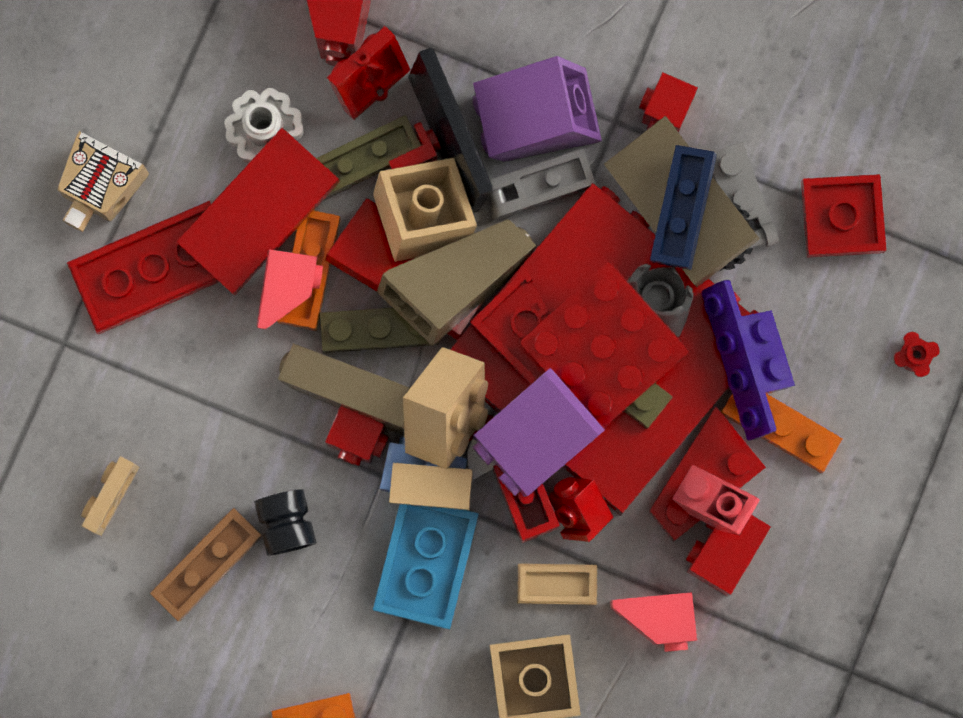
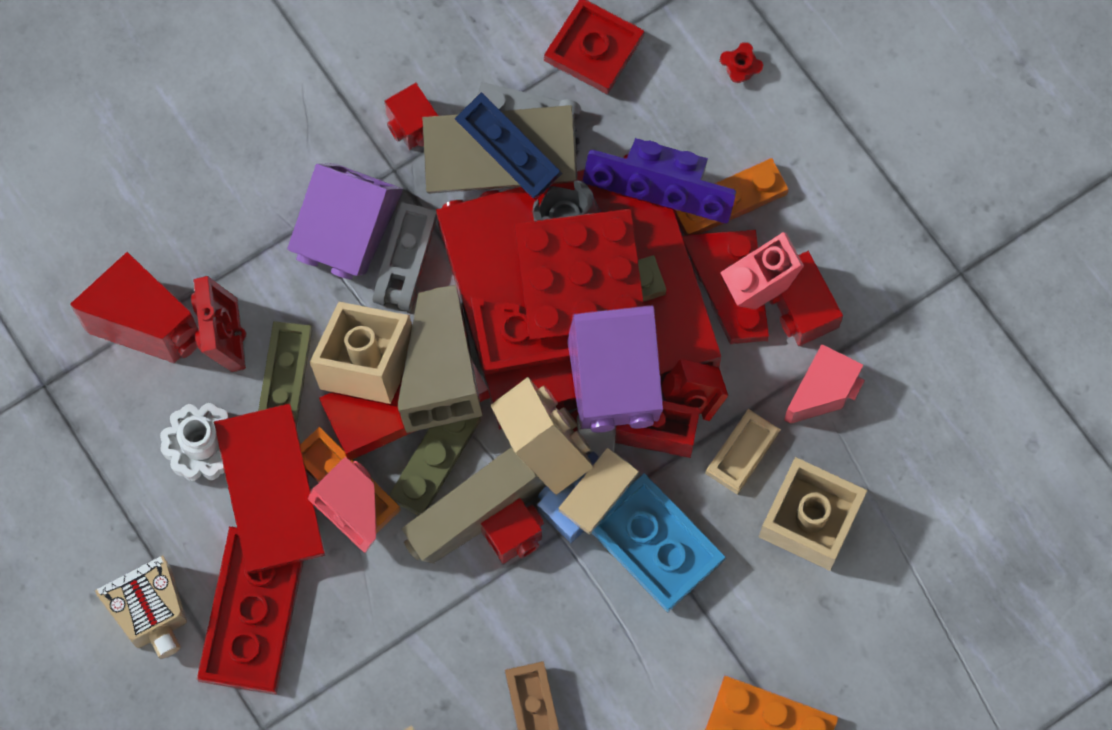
camera: 55 degrees left, 10 degrees down
(285, 522) = (546, 634): black wheel -> none
(419, 155) = (317, 325): red bracket -> none
(449, 126) = (306, 288): black tile -> none

